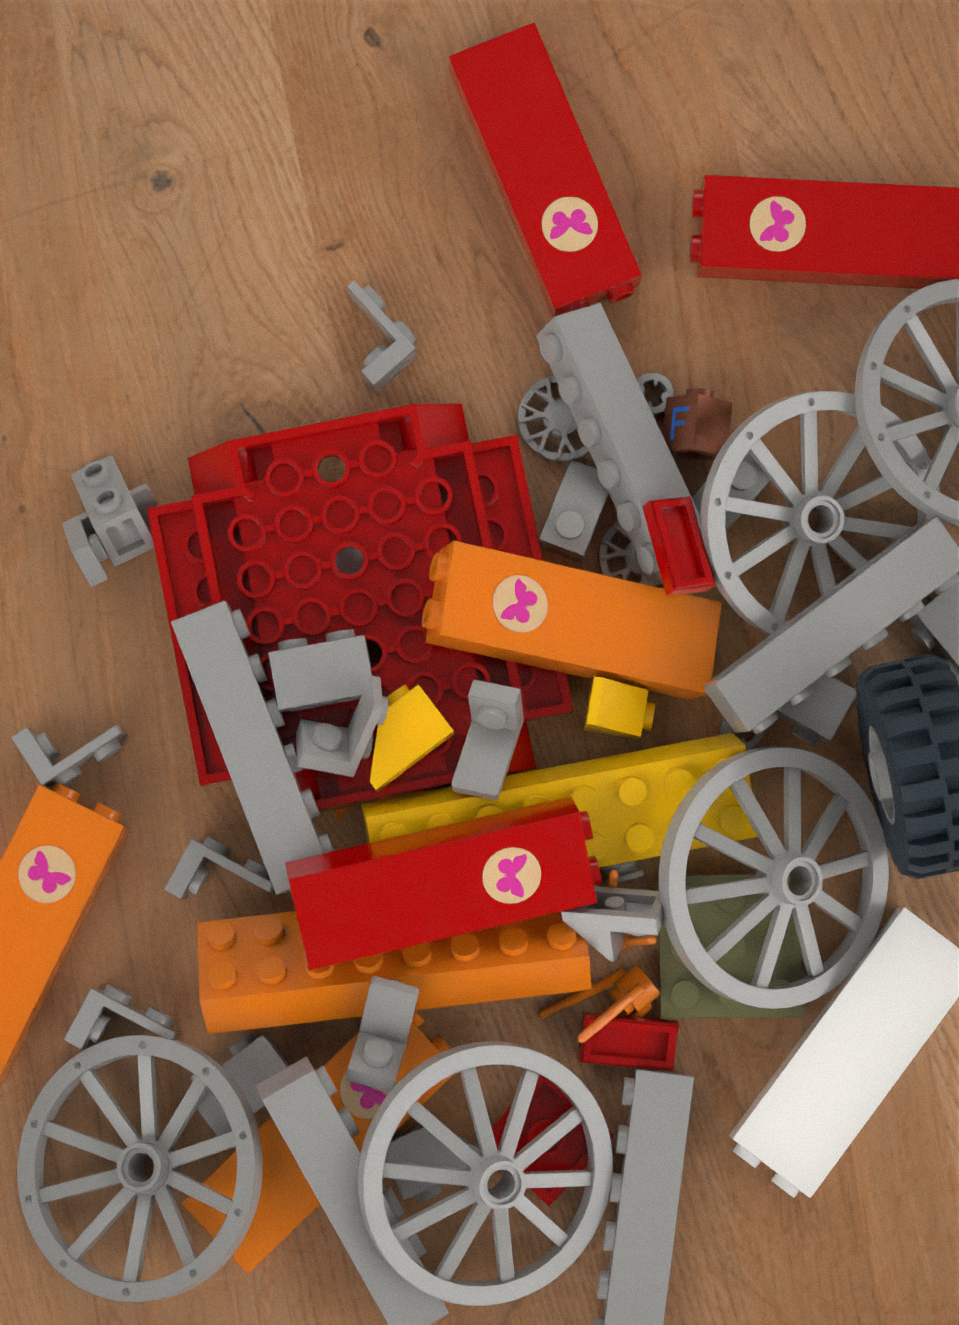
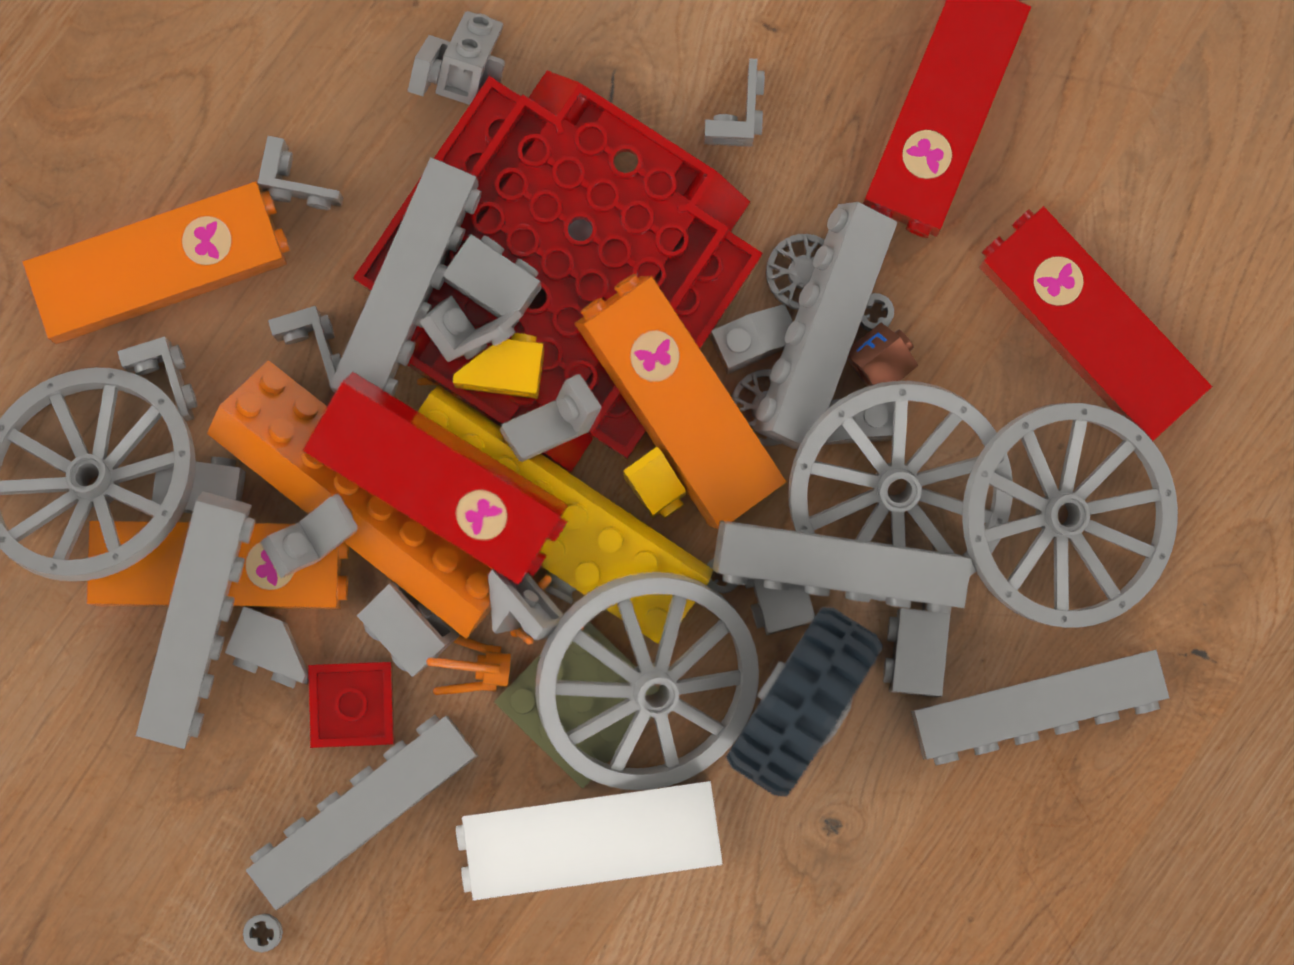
camera: 45 degrees right, 0 degrees up
(480, 1167) = (297, 782): light grey wheel -> none
(537, 1022) = (406, 628): none -> light grey brick
(630, 1042) = (460, 697): red tile -> none
(678, 546) = (791, 418): red tile -> none

